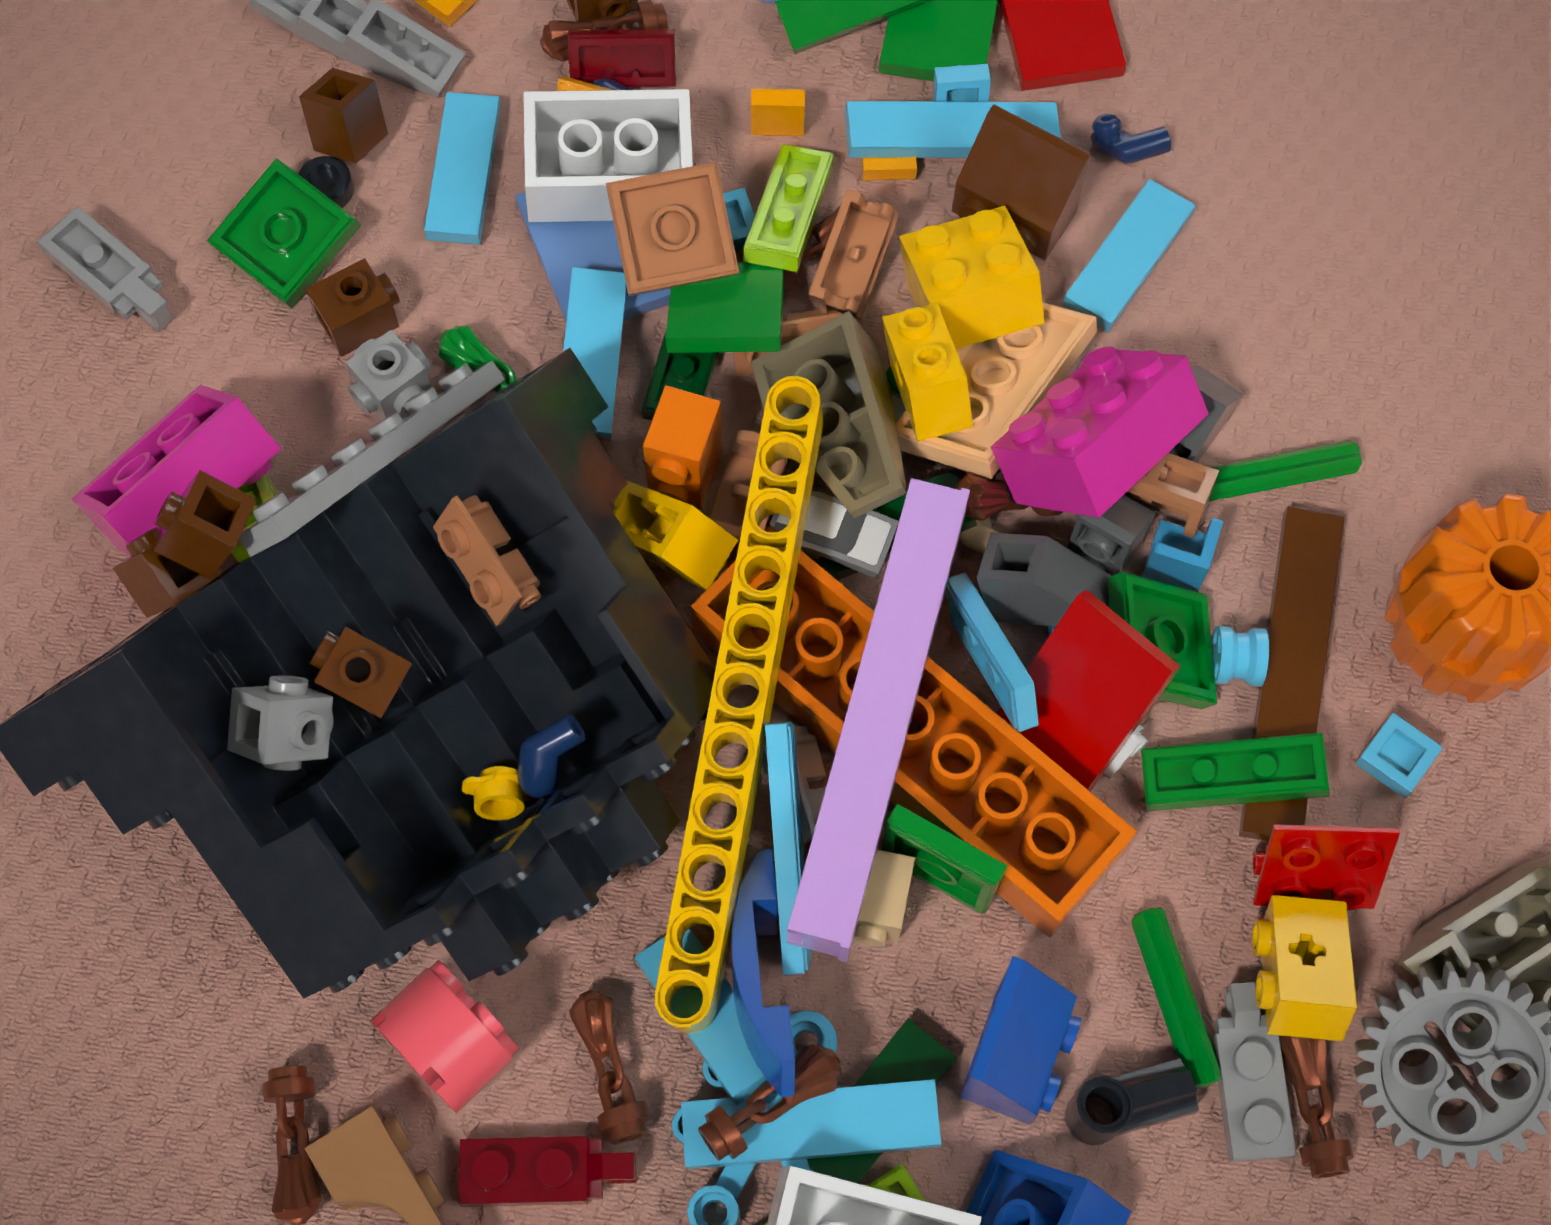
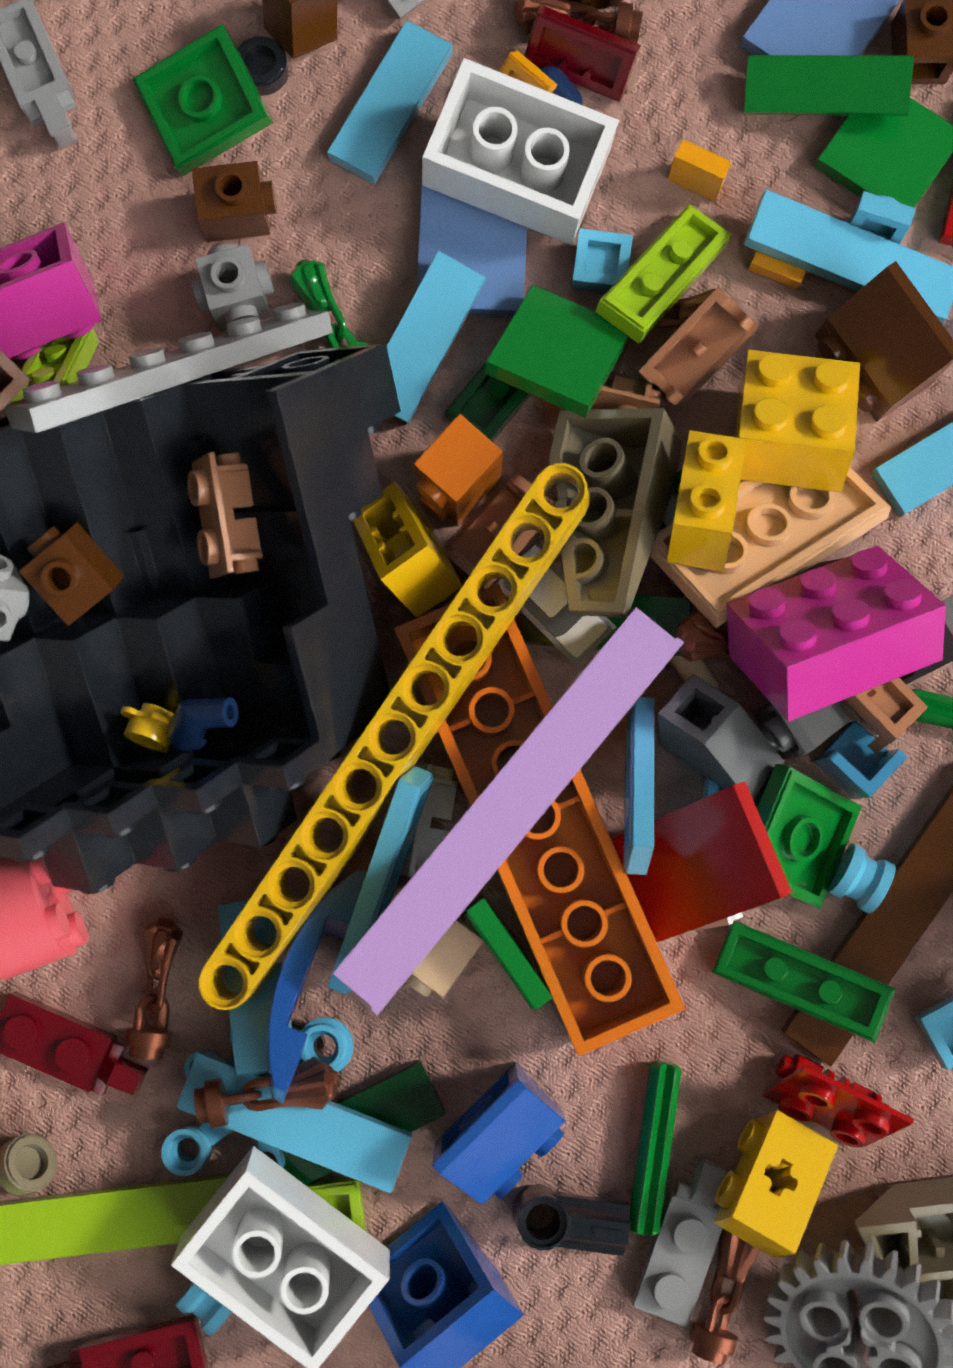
camera: 25 degrees right, 15 degrees up
(672, 229) = (540, 255): nougat tile -> none

